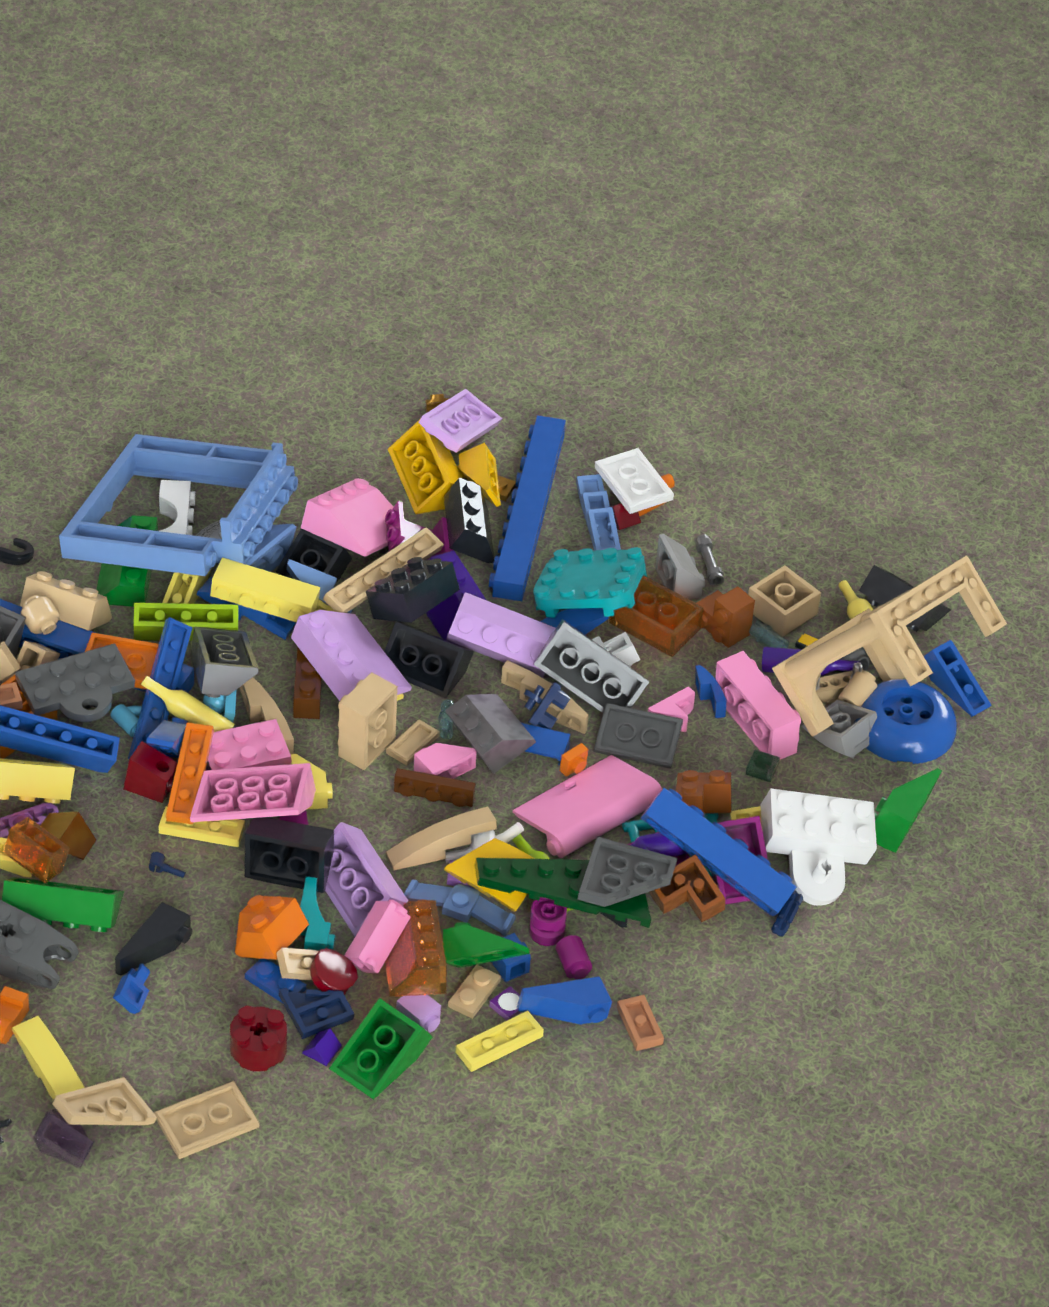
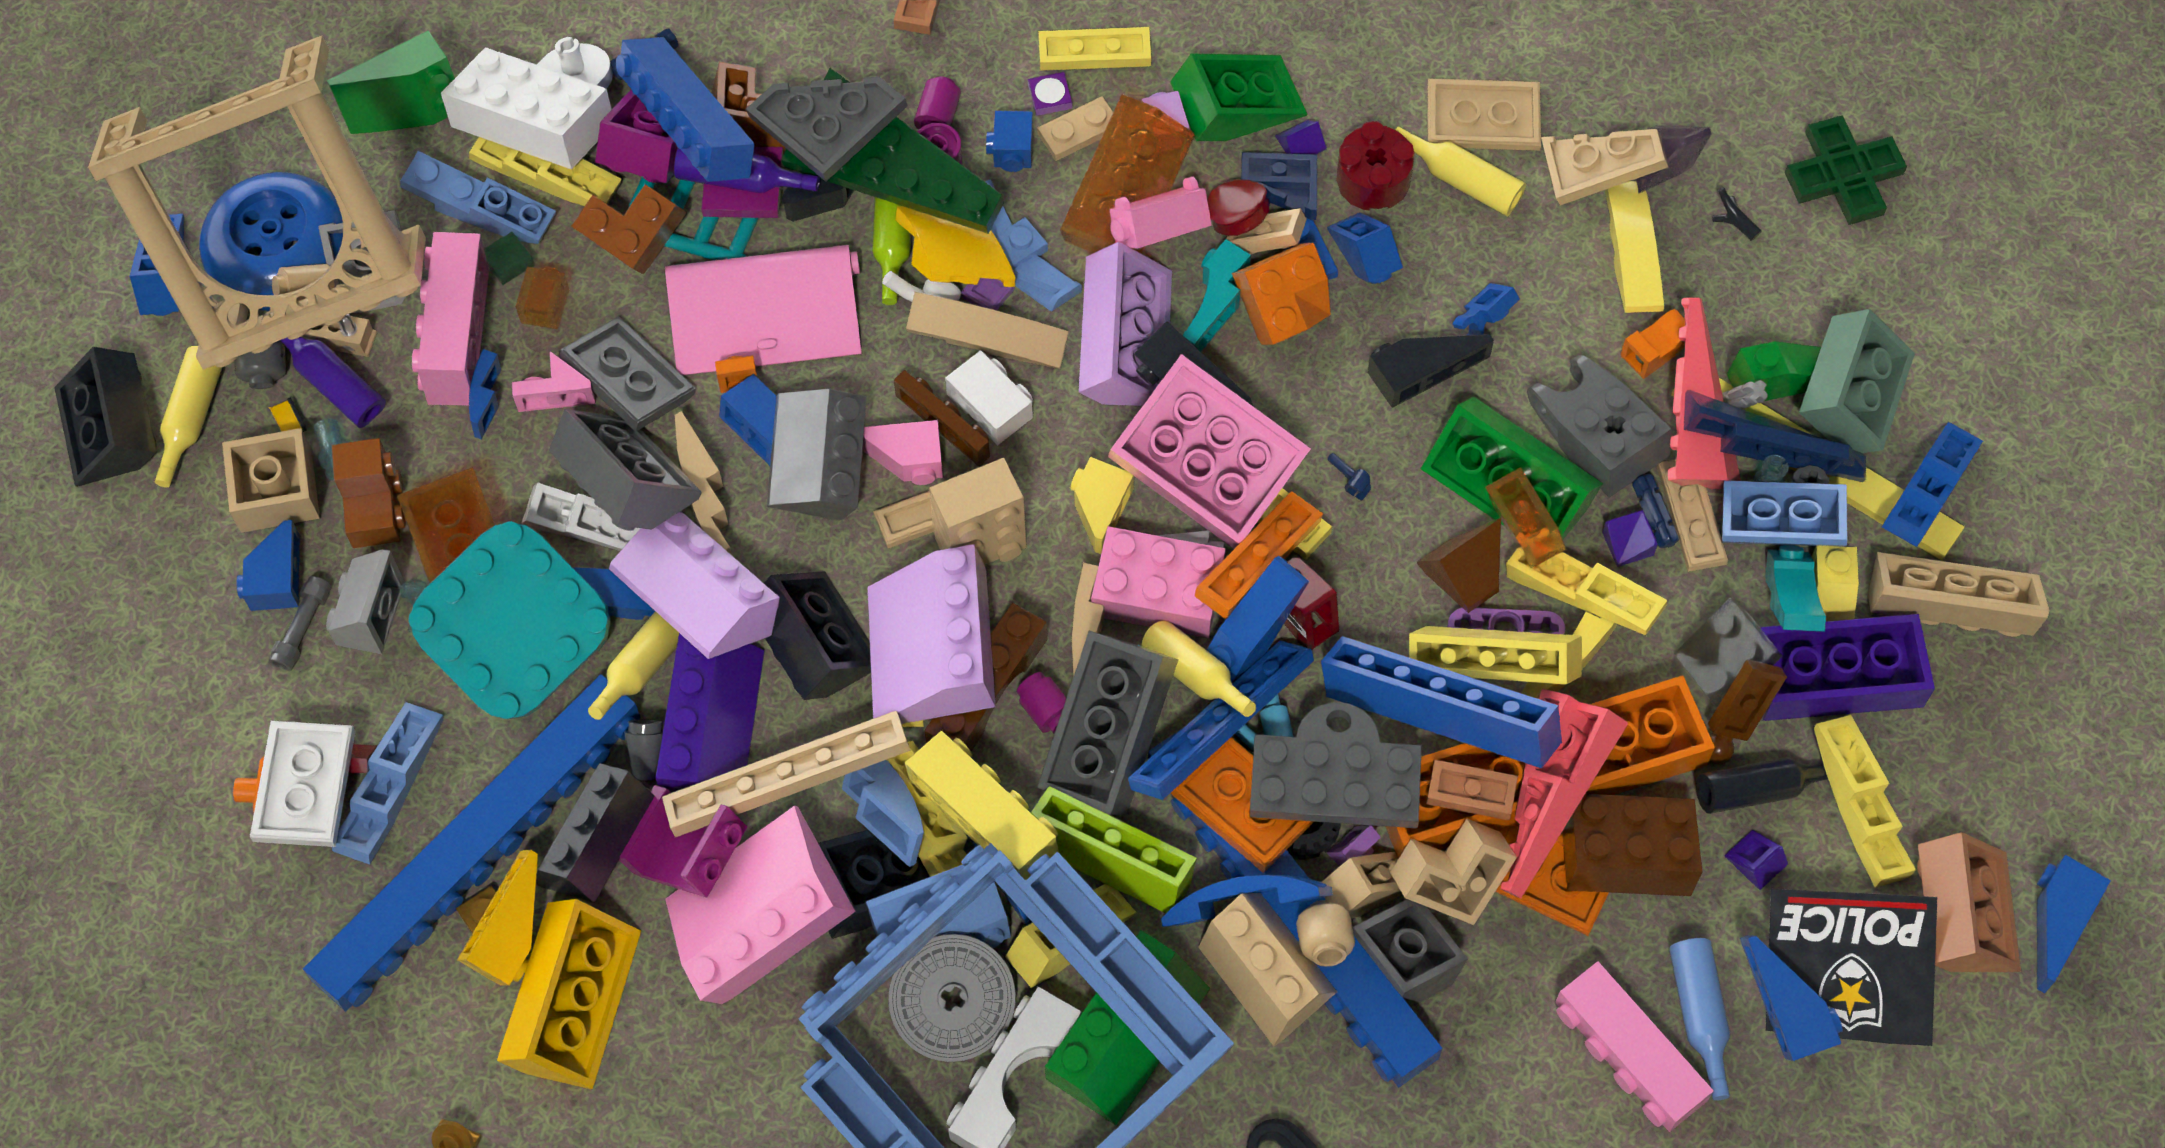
camera: 145 degrees left, 20 degrees up
(88, 620) = (1200, 904): none -> blue slope
(196, 1067) = (1469, 173): none -> light yellow piece
(234, 988) = (1367, 247): none -> blue slope
(273, 679) = (1042, 701): none -> magenta brick
(412, 590) = (772, 708): black brick -> none
(413, 808) = (990, 396): none -> white brick
(445, 722) = (851, 526): clear light blue arm -> none
(460, 420) = (462, 1041): lavender plate -> none
(472, 946) = (1048, 140): green slope -> none
(479, 572) = (644, 747): none -> dark grey cone
(506, 582) = (636, 663): none -> light yellow piece
(554, 696) = (723, 443): dark blue hips -> none
(569, 1001) = (980, 46): blue slope -> none
(721, 751) = (542, 297): none -> clear orange brick
(741, 567) = (272, 571): none -> blue slope
(822, 781) = (477, 202): none -> medium blue slope

